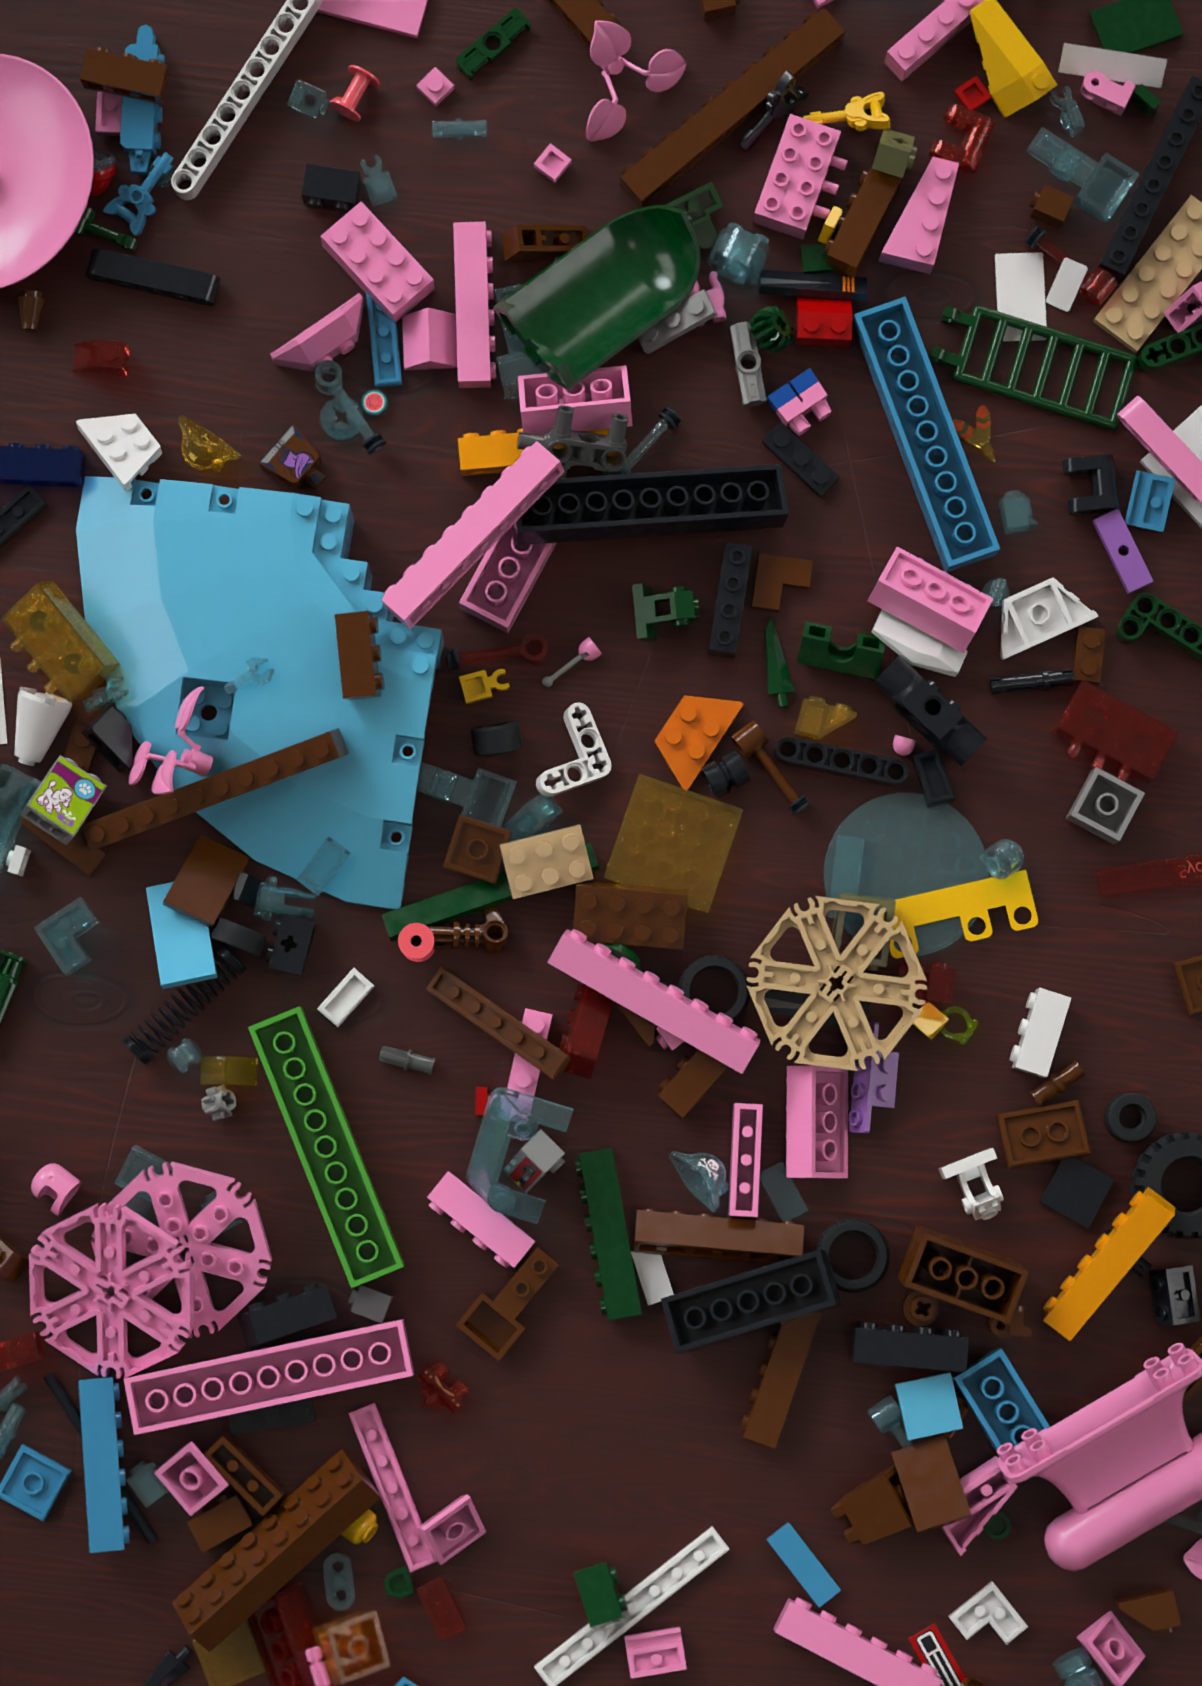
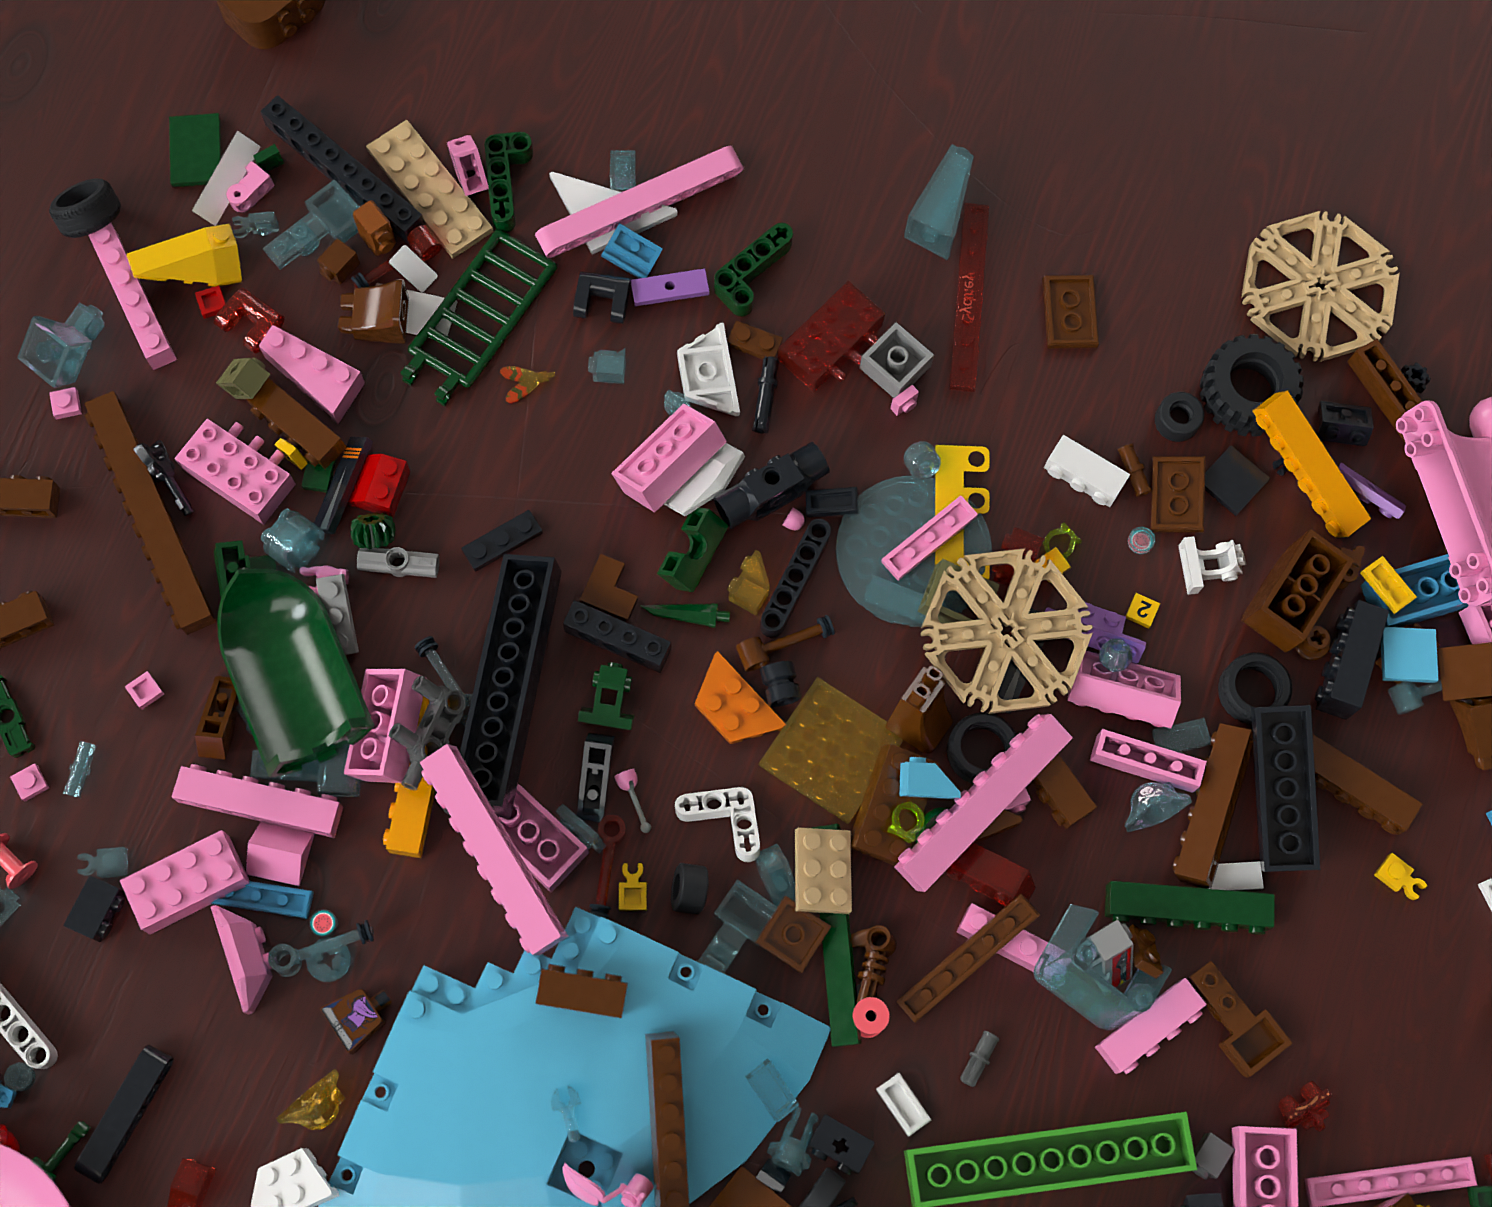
camera: 75 degrees left, 10 degrees down
(139, 196) = (36, 1106): dark azure piece -> none
(452, 1529) = (1442, 1133): bright pink slope -> none
(481, 1100) = (1037, 994): red plate -> none
(530, 608) = (584, 832): none -> clear light blue plate
(550, 1195) = (1145, 952): none -> reddish brown plate
(584, 618) = (595, 776): none -> black slope
(600, 935) = (895, 827): none -> clear neon green piece
(607, 47) = (50, 598): bright pink plant -> none
(656, 935) = (925, 780): none -> medium azure slope
(698, 1439) = (1397, 874): none -> yellow plate
(731, 921) = (922, 712): none -> reddish brown hips
(798, 399) = (444, 524): bright pink hips -> none
(846, 1103) = (1115, 655): none -> clear light blue piece
(855, 113) = (194, 405): yellow piece -> none
(906, 1124) = (1142, 610): none -> yellow tile
(919, 886) = (929, 538): none -> bright pink plate
(925, 434) = (513, 422): dark azure brick -> none
(982, 1107) = (1141, 540): none -> clear light blue tile
(995, 1367) = (1388, 585): none -> yellow plate
(1005, 263) = (377, 314): none -> reddish brown hips
(1065, 826) = (905, 401): none -> bright pink plate
(1095, 231) = (374, 228): none -> dark orange brick
(1103, 1336) = (1369, 493): none -> medium lavender tile

